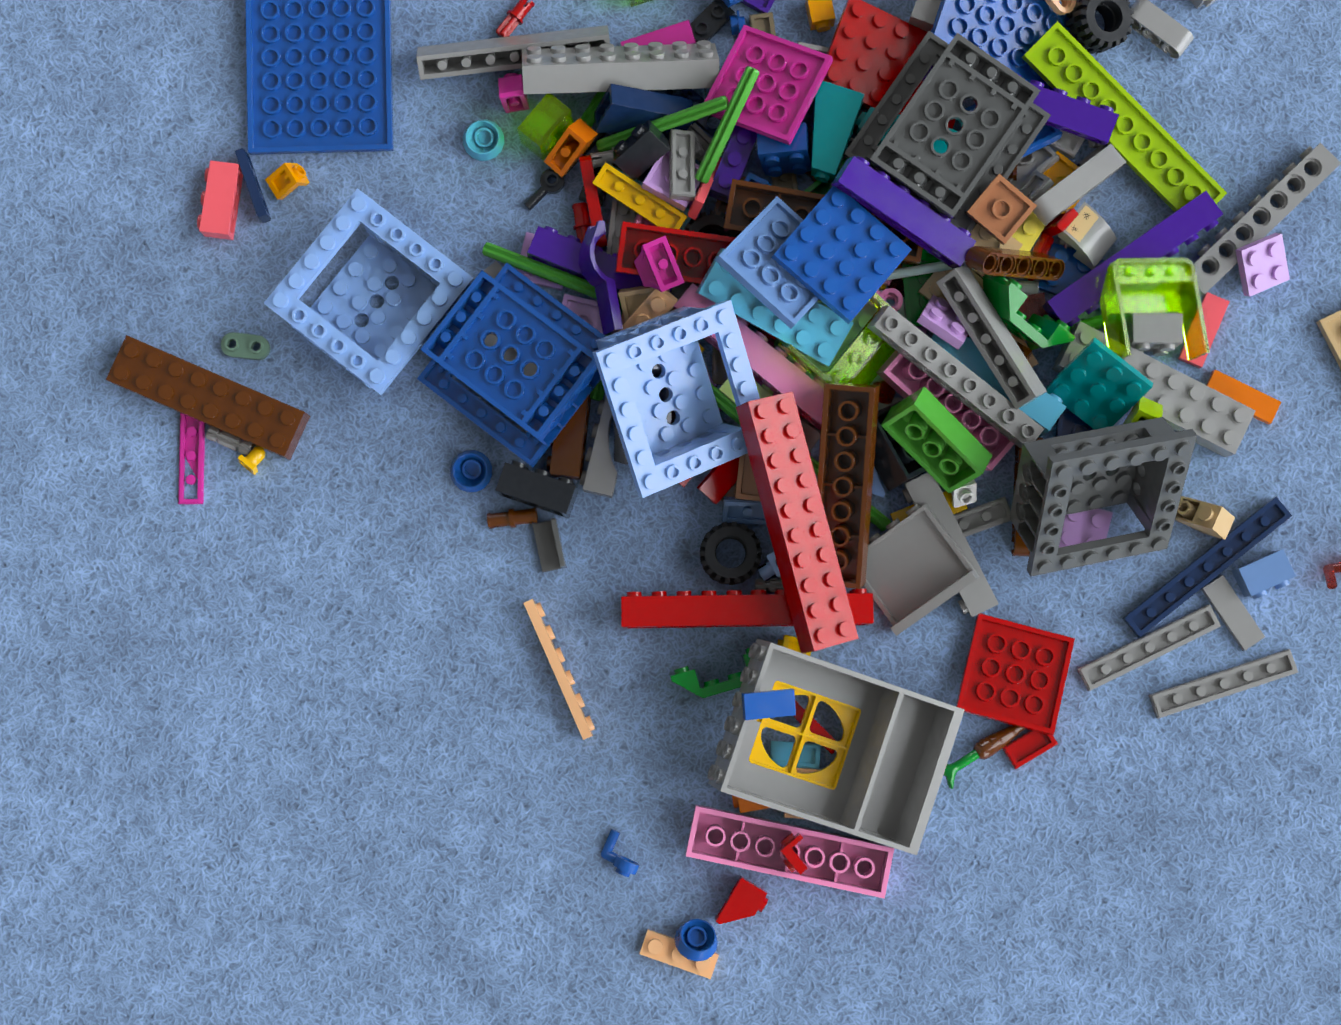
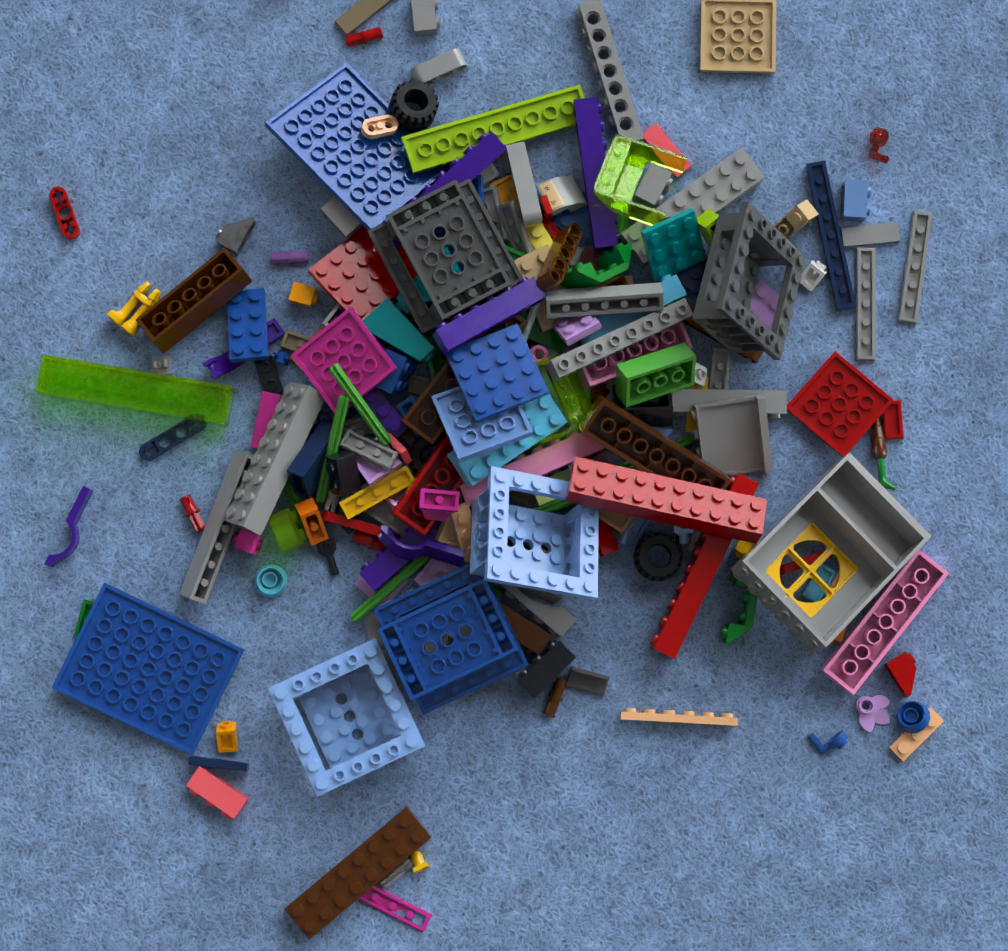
camera: 65 degrees left, 0 degrees up
(245, 345) = (333, 827): sand green plate -> none
(467, 465) = (506, 709): blue hat -> none
(678, 893) = (874, 713): none -> lavender plate
(768, 704) = (783, 583): blue tile -> none
(792, 860) = (893, 622): red bracket -> none
(1001, 209) = (517, 246): nougat plate -> none
(1150, 568) = (813, 274): none -> white bracket
(1262, 264) = (642, 87): lavender plate -> none
(1263, 404) = (725, 148): orange tile -> none

